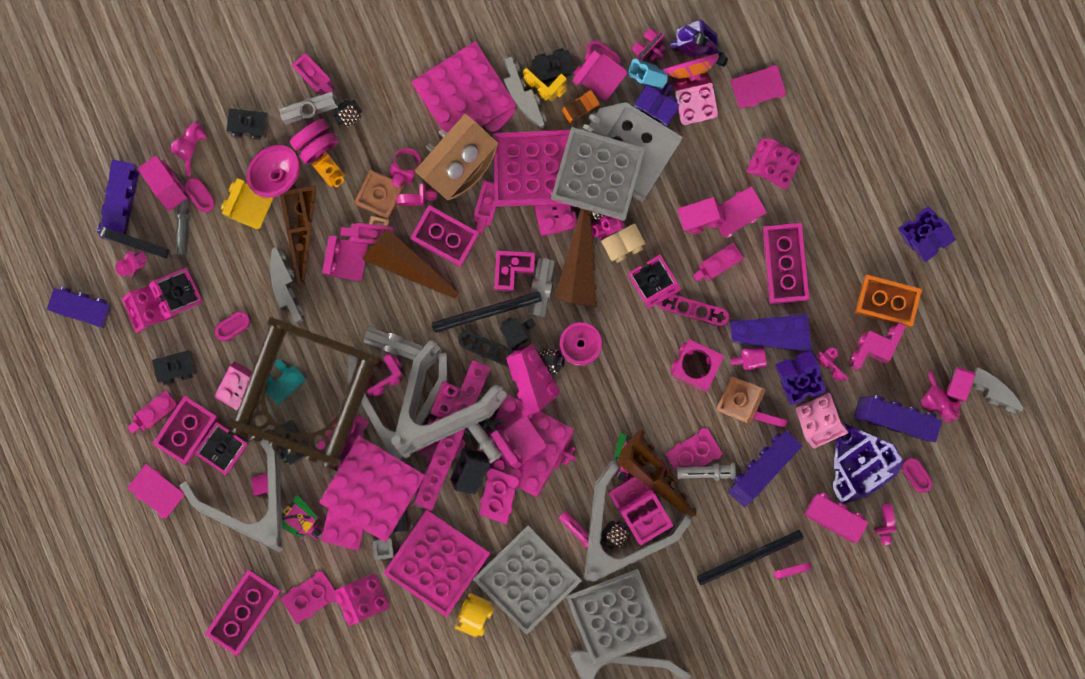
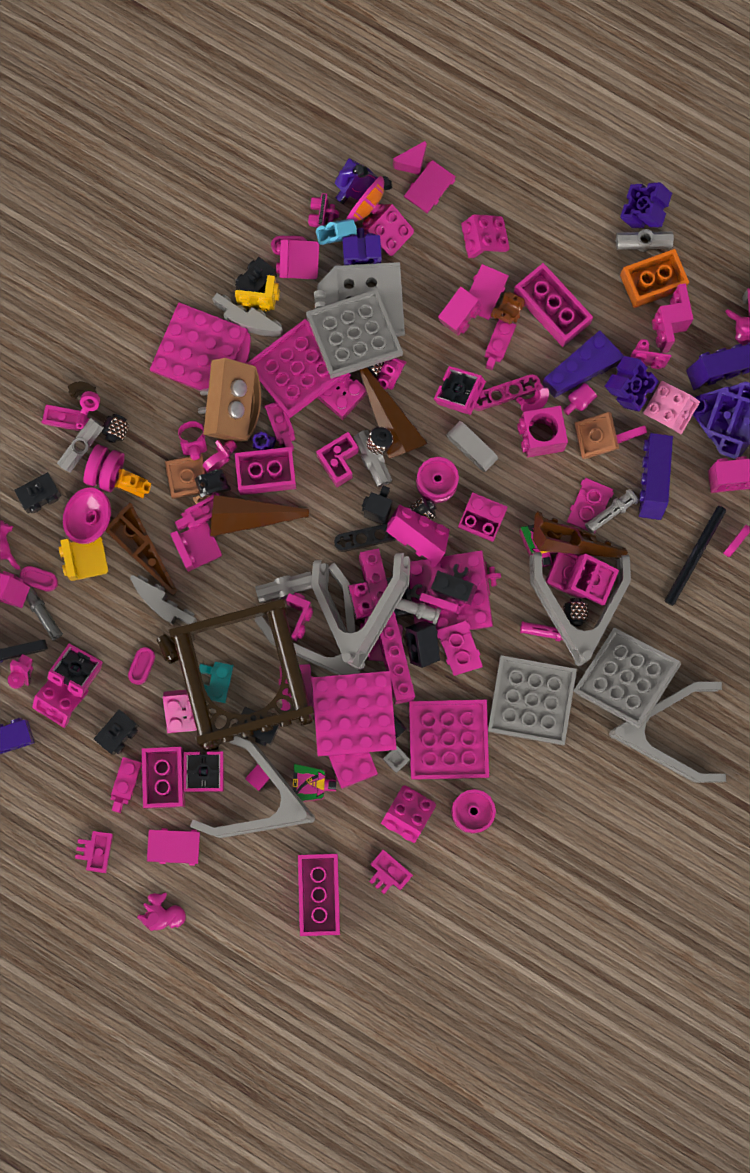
camera: 40 degrees left, 5 degrees down
(92, 451) = (96, 851): none -> dark pink hinge
(105, 540) = (157, 917): none -> dark pink animal
(262, 327) = (168, 649): none -> dark brown cone
(309, 597) = (363, 843): dark pink piece -> none
(312, 635) = (389, 872): none -> dark pink hinge
(339, 77) = (89, 402): none -> dark pink plate
(340, 57) = (79, 388): none -> dark brown piece
(394, 216) = (212, 483): none -> black piece
(423, 629) = (481, 803): none -> dark pink wheel
(460, 211) = (263, 441): none -> dark purple piece
(473, 615) = (511, 759): yellow brick -> none
(487, 311) = (342, 507): black axle -> none
(527, 444) = (454, 585): none -> black brick
(554, 278) = (379, 440): none -> black head
(581, 107) = (301, 295): orange leg -> none
(594, 402) = (482, 517): none -> dark pink slope
(623, 242) = (412, 378): tan brick -> none
(631, 335) = (472, 446): none -> light grey beam
(709, 336) = (537, 401): none -> dark pink piece
(746, 240) = (509, 308): none -> dark orange piece
(759, 53) = (411, 160): none -> dark pink slope
(895, 254) = (656, 240): none -> light grey piece

